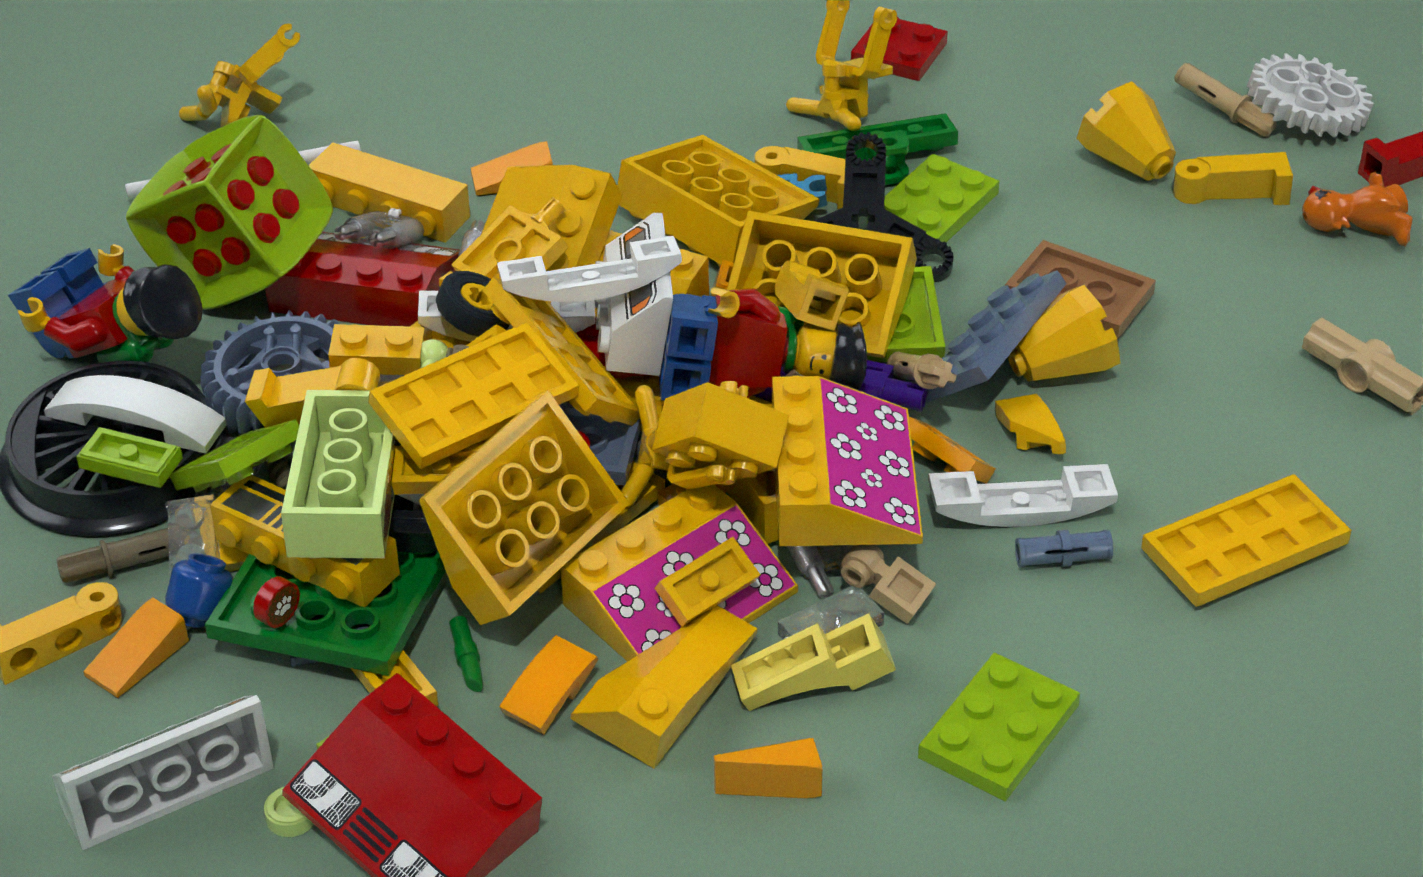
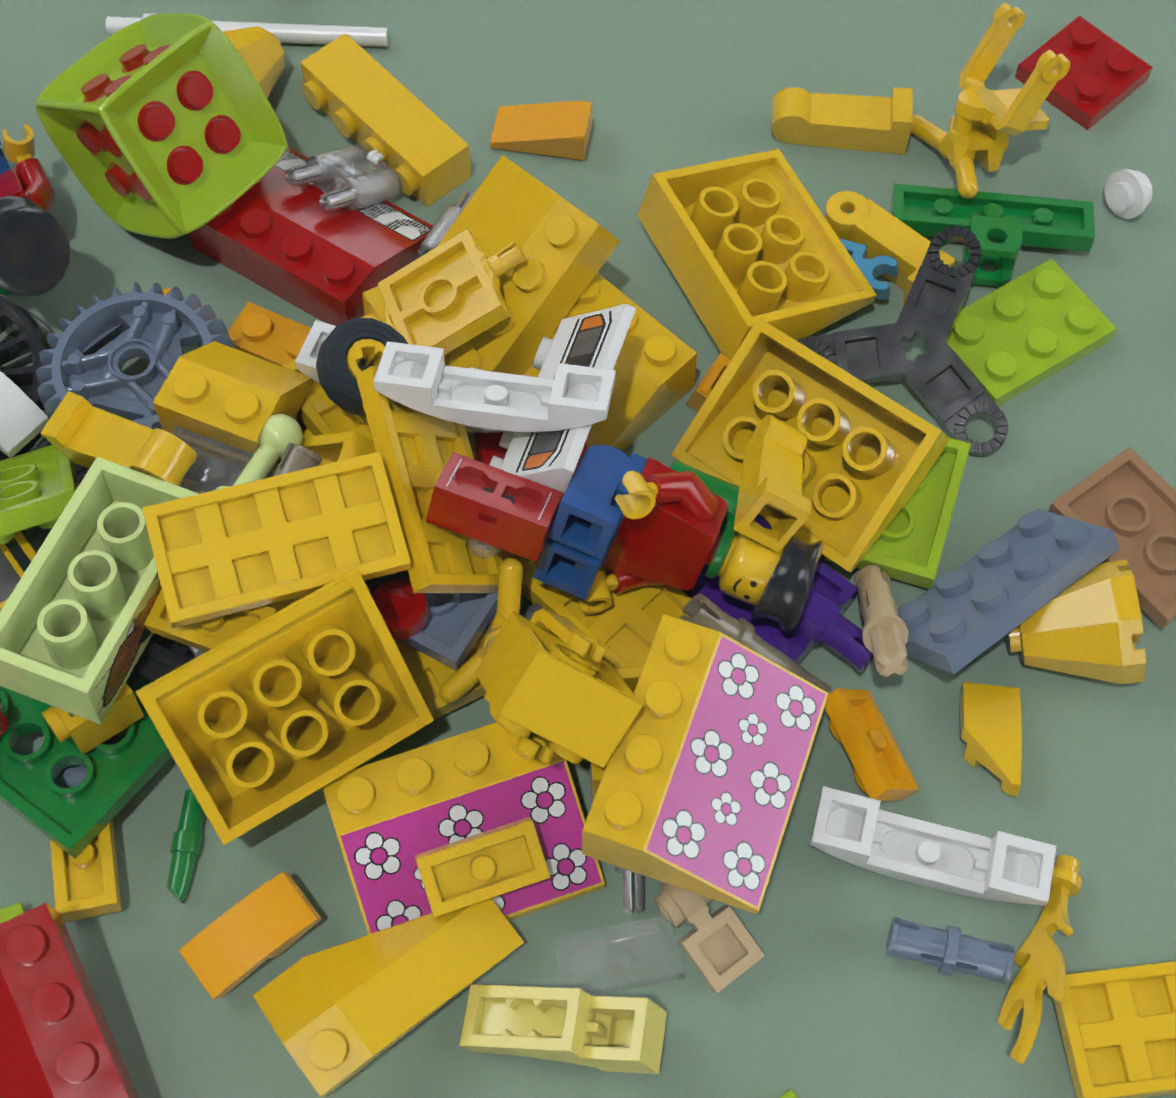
camera: 20 degrees right, 20 degrees up
(621, 346) = (493, 508): none -> red piece
(741, 112) = (844, 120): none -> yellow leg
(967, 104) = (1128, 193): none -> white plate
(1129, 532) = (1041, 959): none -> yellow piece

